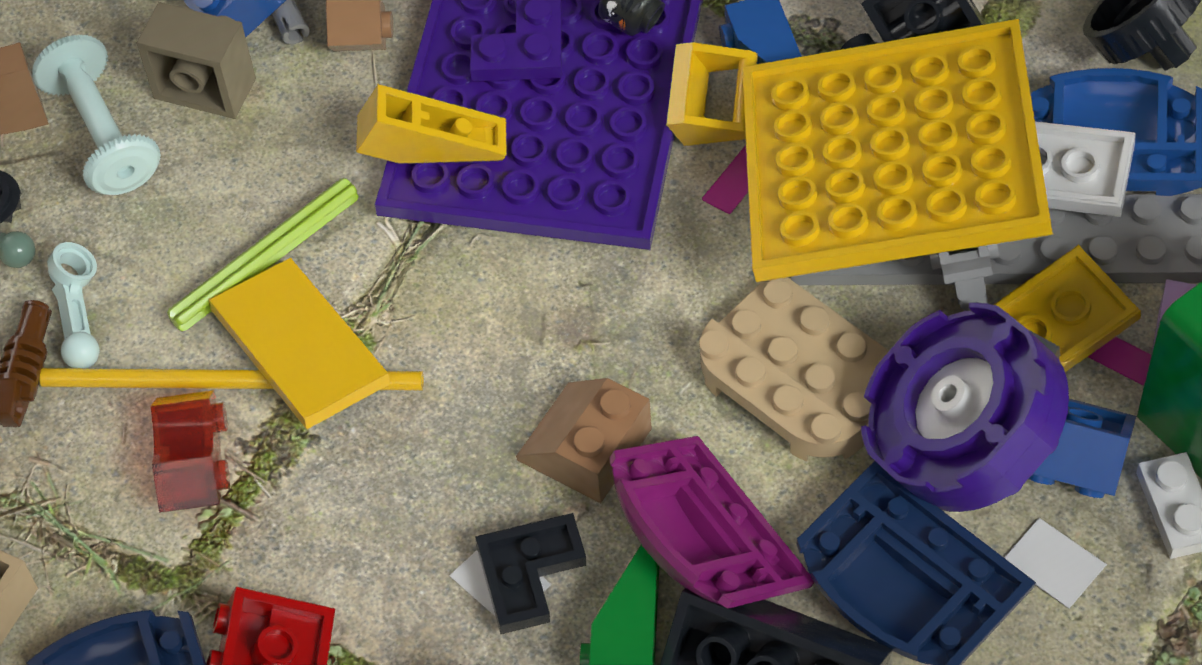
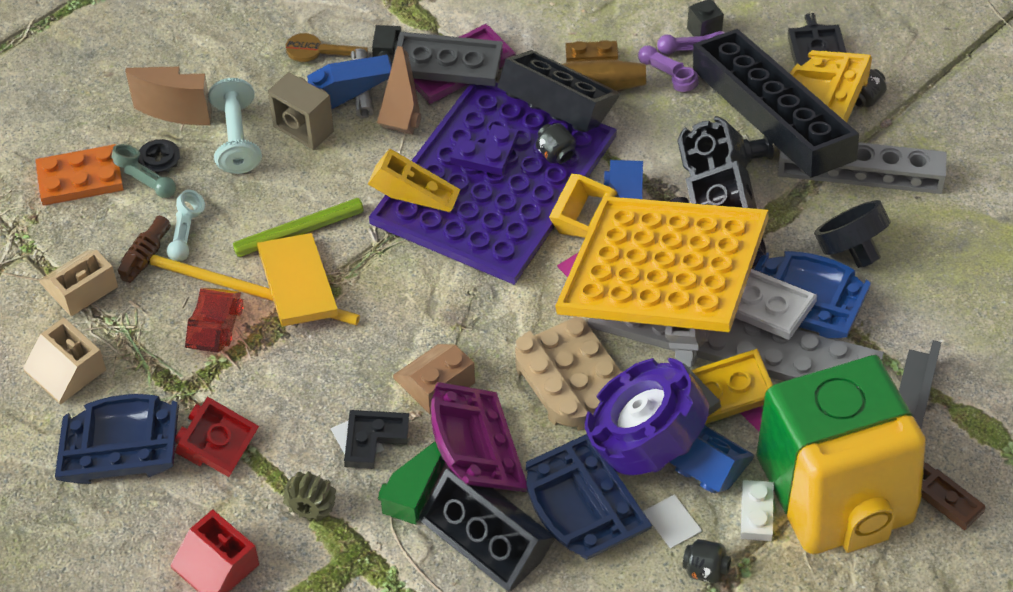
camera: 15 degrees right, 5 degrees down
(1141, 613) = (706, 561): none -> pearl dark grey head

